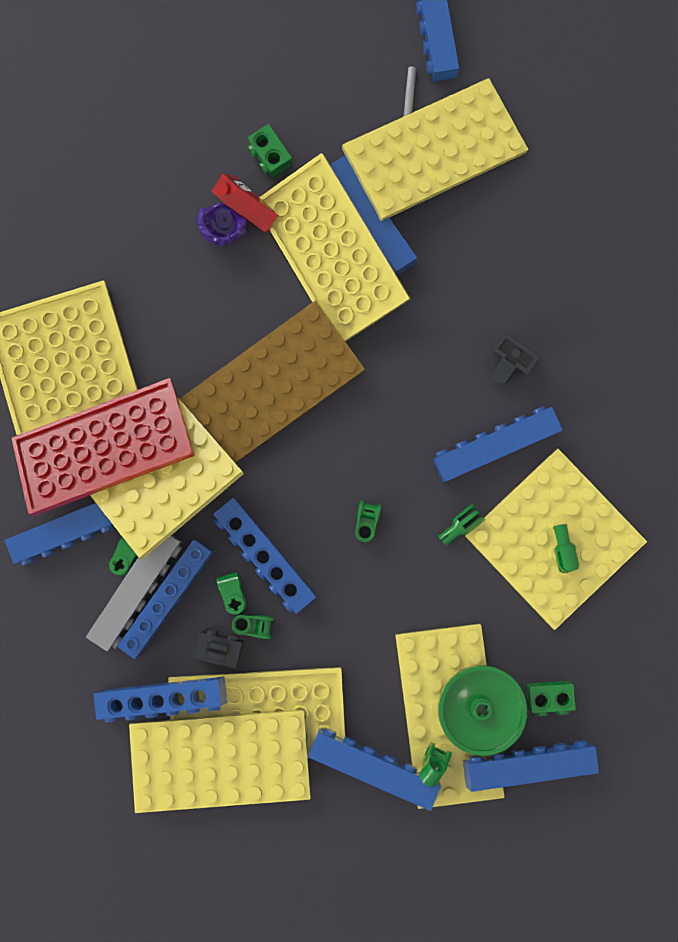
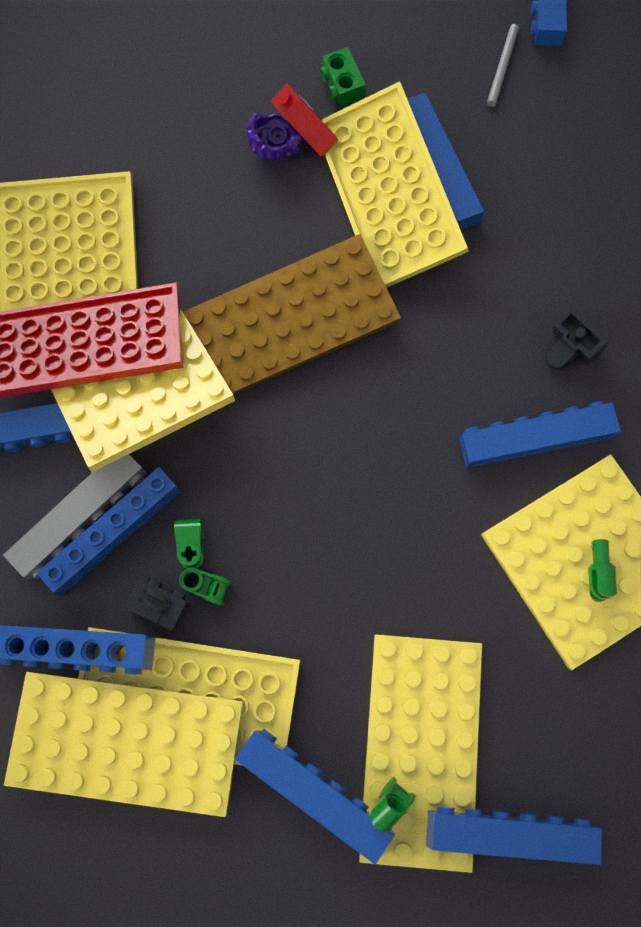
camera: 10 degrees right, 10 degrees down
(124, 554) = (73, 470): green piece -> none
(232, 510) = (211, 447): blue brick -> none
(367, 519) = (368, 488): green piece -> none
(434, 149) = (524, 107): light yellow plate -> none
(459, 527) = (481, 518): green arm -> none
(482, 710) = (465, 748): green dish -> none
(550, 691) = (554, 748): green brick -> none

